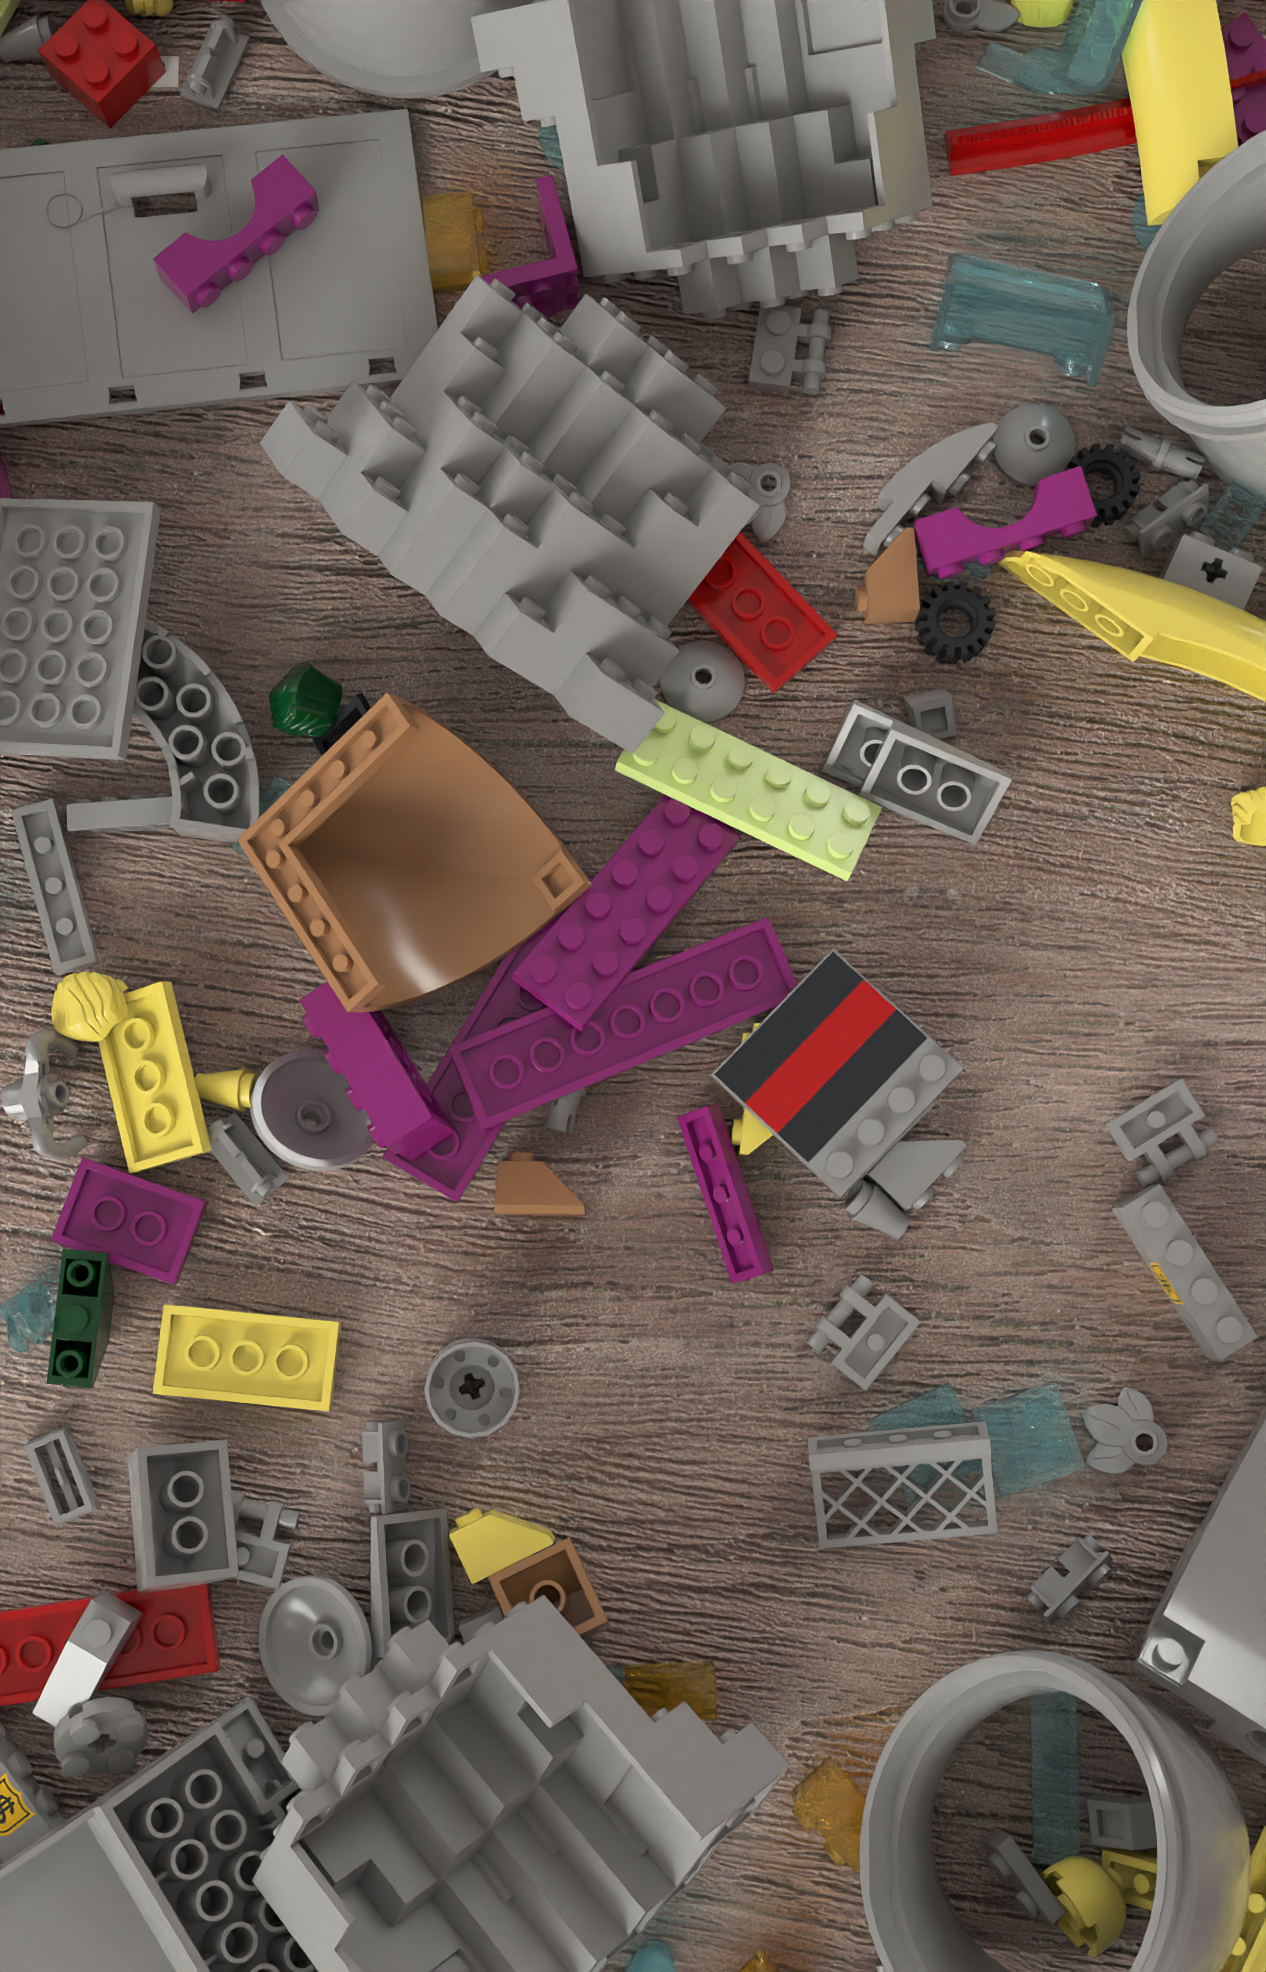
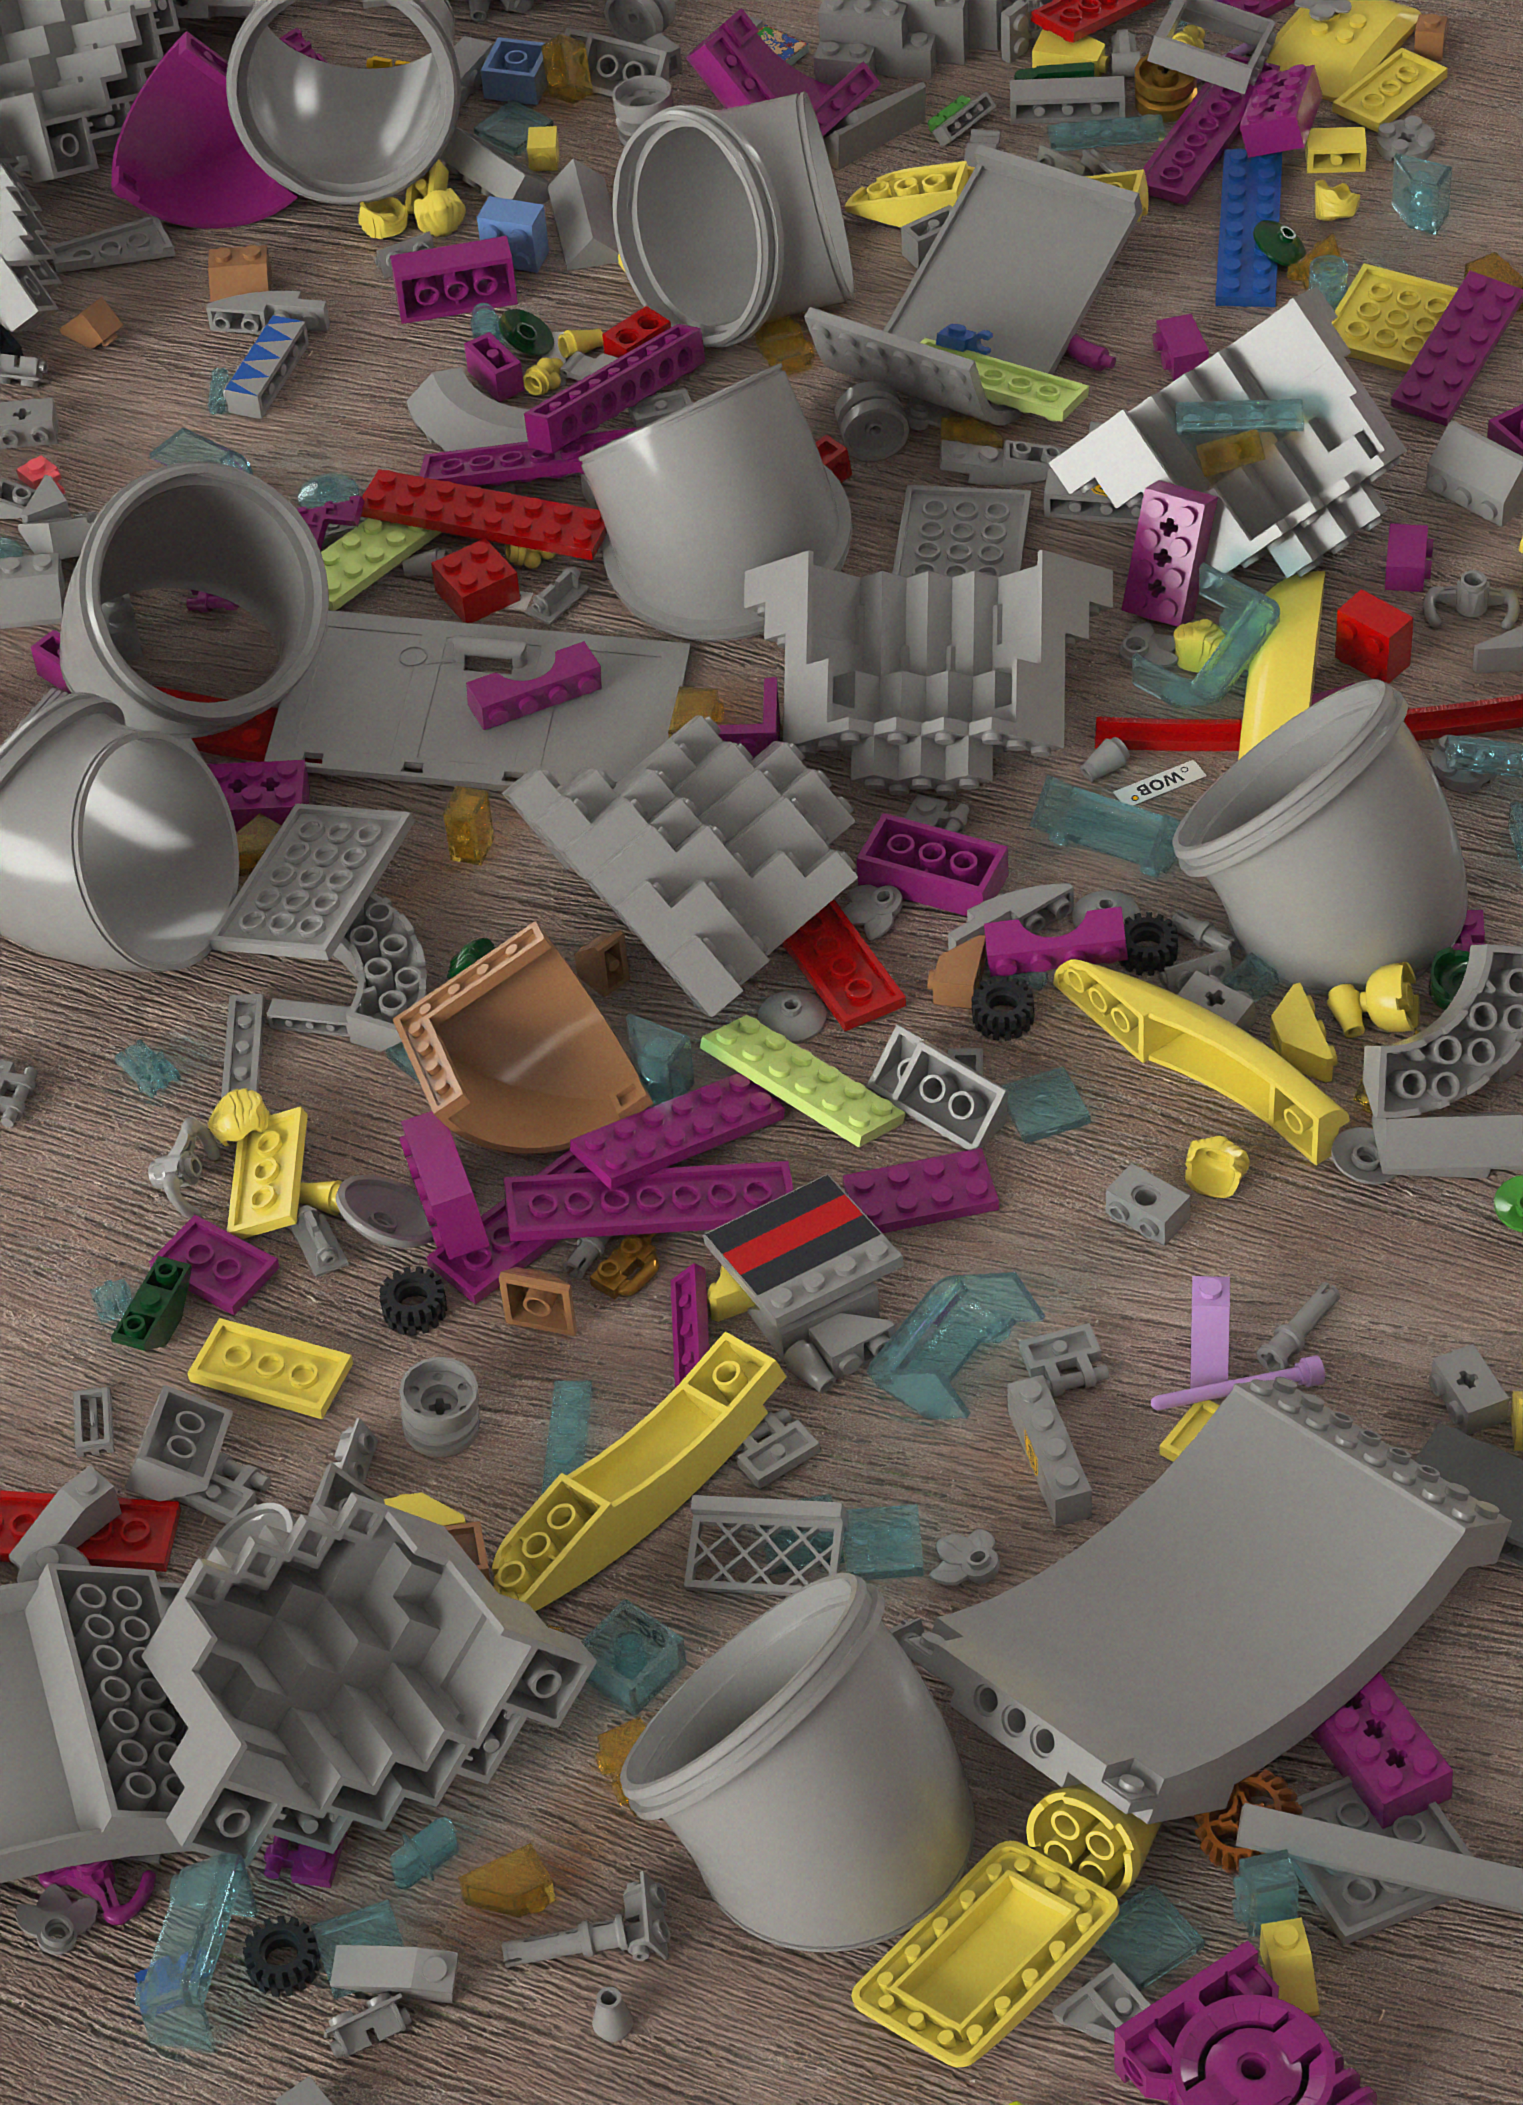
camera: 20 degrees right, 35 degrees down
(225, 481) = (468, 825): none -> clear yellow brick
(358, 1216) = (416, 1316): none -> black tyre
(455, 660) = (603, 963): none -> medium nougat slope
(574, 811) = (660, 1058): none -> clear light blue slope
(603, 1122) = (632, 1253): none -> pearl gold piece
(626, 1380) = (567, 1429): none -> clear light blue plate
(726, 1436) = (638, 1480): none -> light yellow slope
(796, 1680) = (633, 1656): none -> clear light blue brick
(829, 400) = (932, 864): none -> magenta brick
(930, 918) = (924, 1190): none -> magenta plate
(975, 199) = (1105, 759): none -> light grey cone
(1011, 1148) = (944, 1334): none -> clear light blue windscreen
(1039, 753) = (1045, 1105): none -> clear light blue tile
(1043, 219) = (1160, 783): none -> white sticker
(1227, 887) = (1147, 1204): none -> light grey brick

